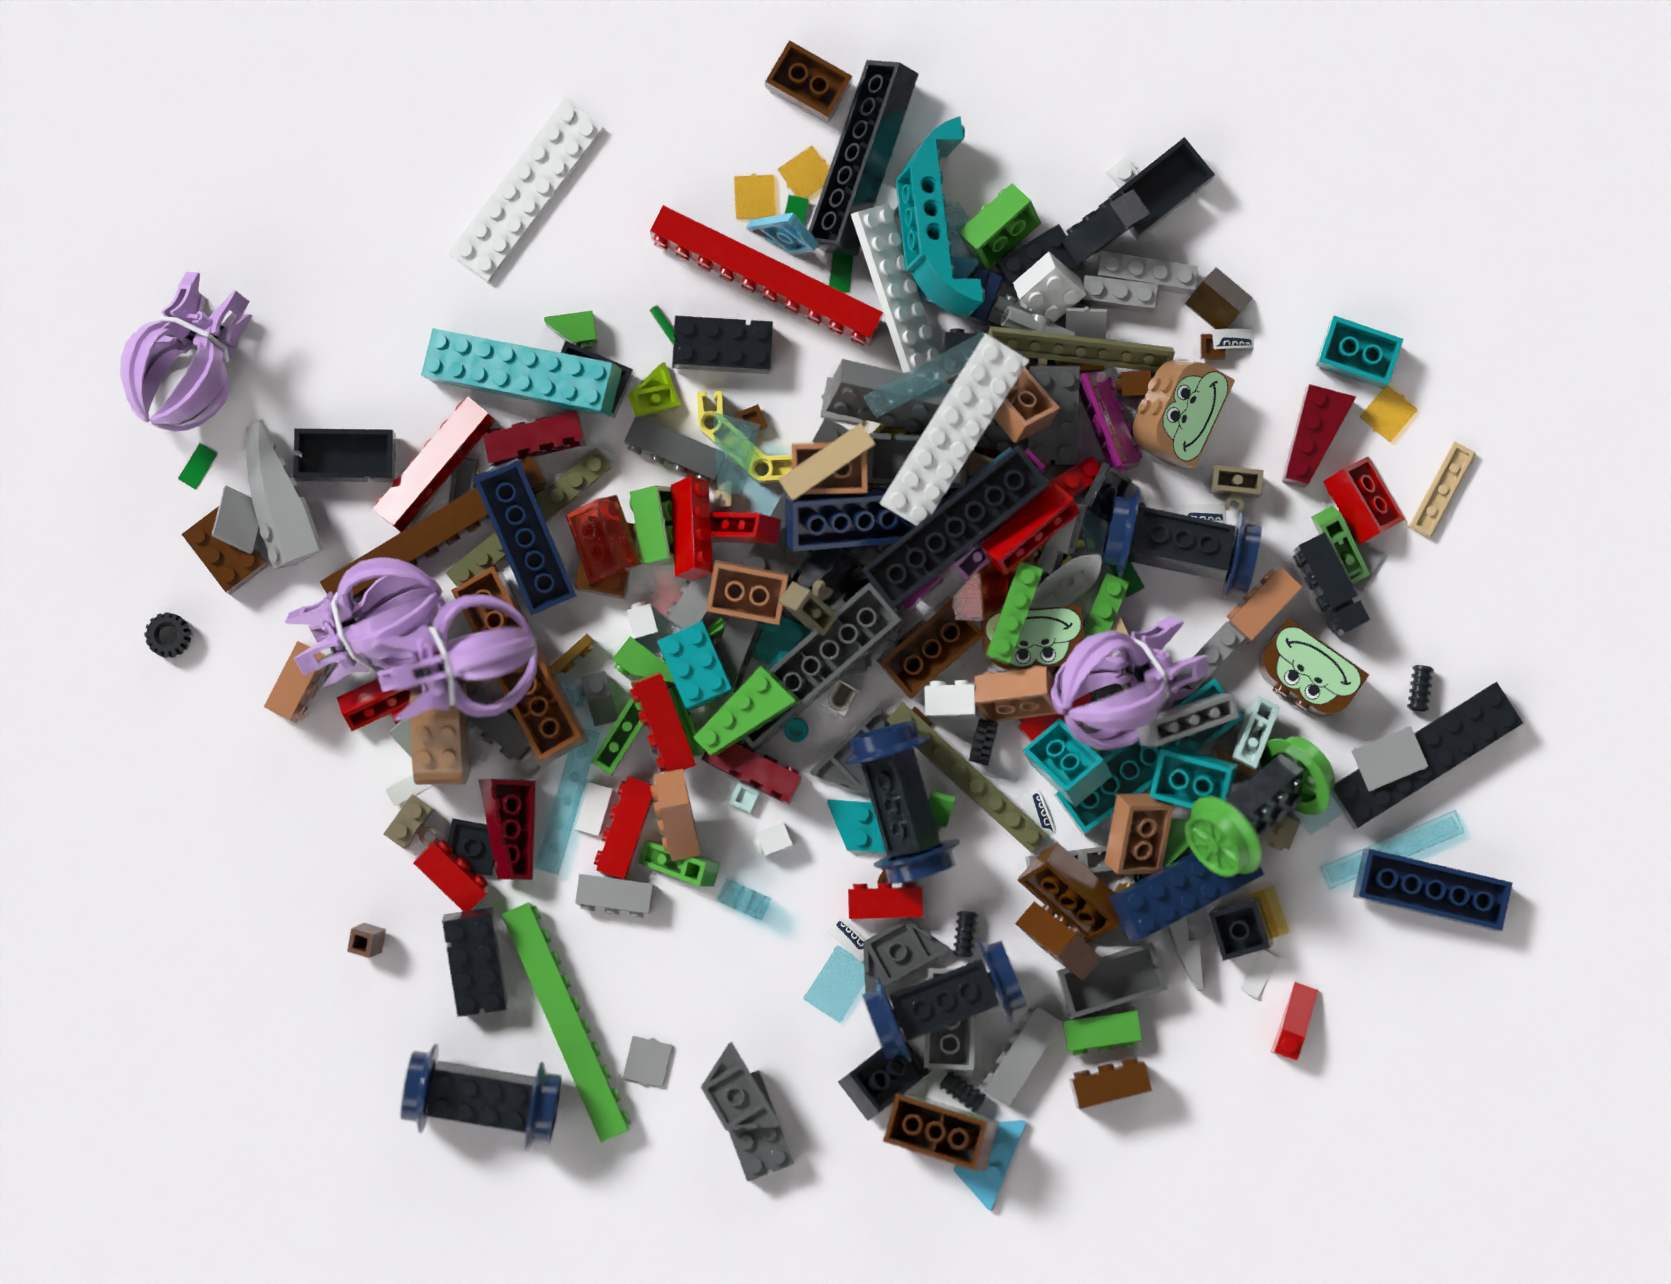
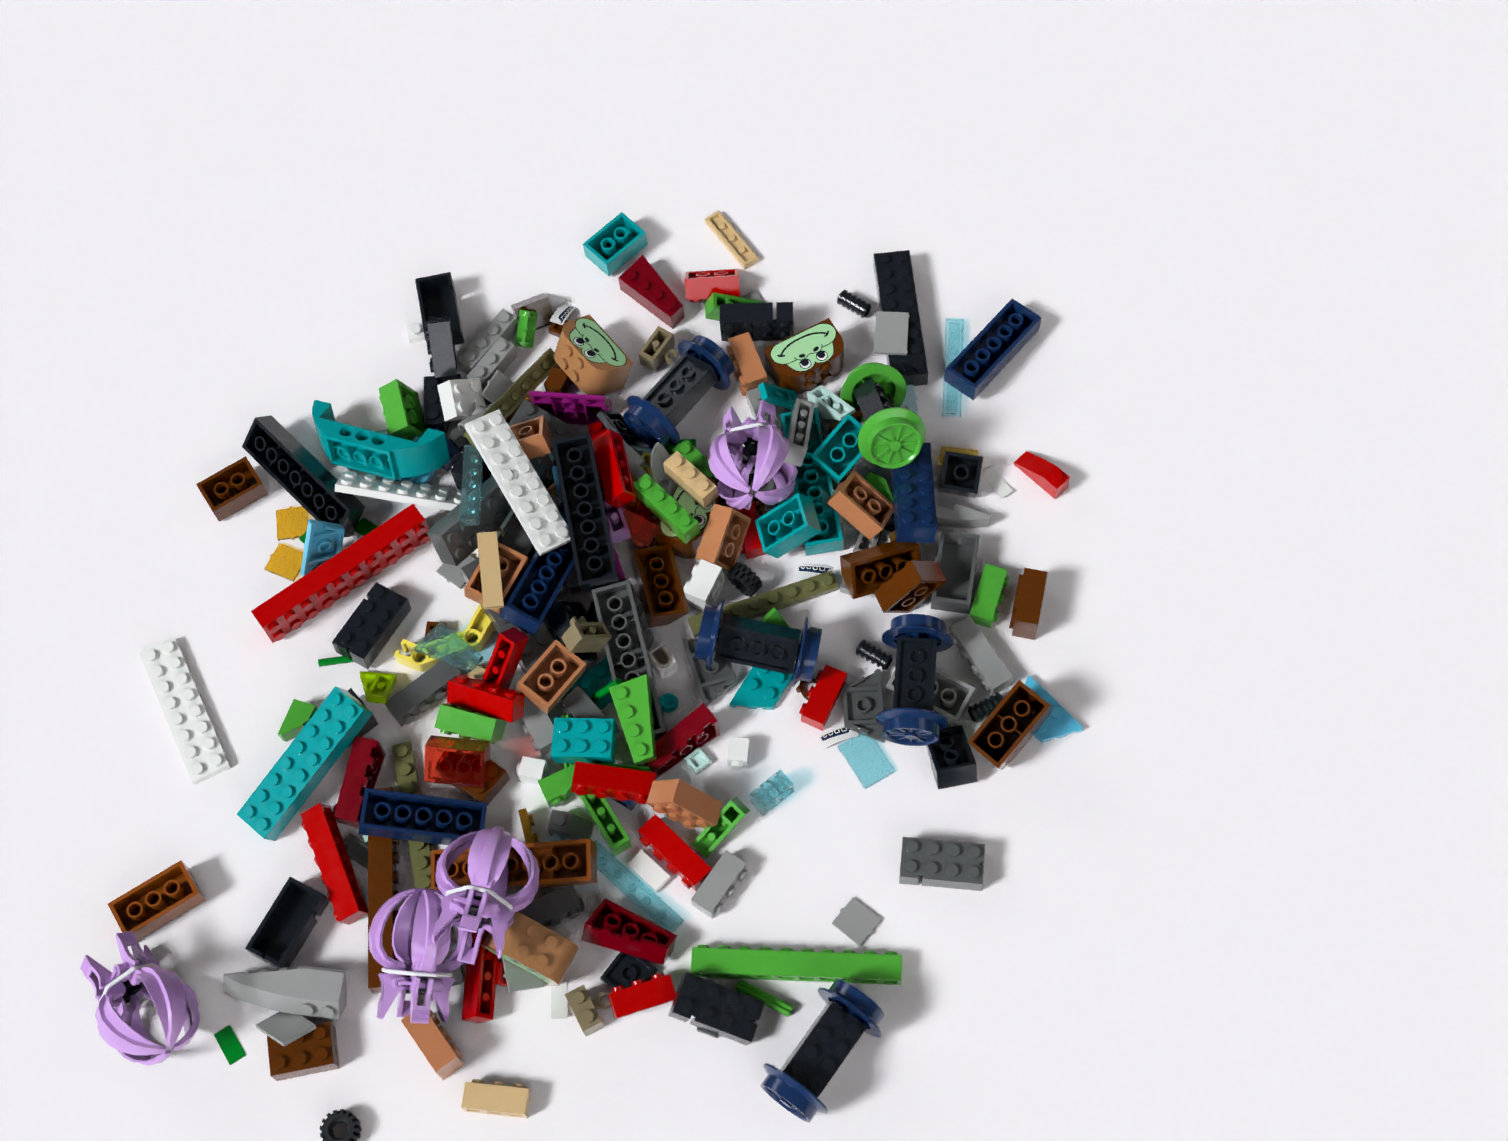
camera: 55 degrees left, 20 degrees down
(275, 778) = (496, 1098): none -> tan brick
(300, 299) = (157, 901): none -> dark orange brick
(366, 940) = (657, 1086): reddish brown brick -> none
(516, 1003) = (770, 1000): none -> bright green axle
(736, 1094) = (913, 857): dark grey wing -> none
(767, 658) = (605, 690): none -> green piece
(1064, 622) = (690, 479): none -> tan brick
(1187, 307) = (526, 328): none -> bright green hinge
(1239, 664) = (777, 395): none -> teal plate
(1388, 413) = (664, 249): clear yellow piece -> none

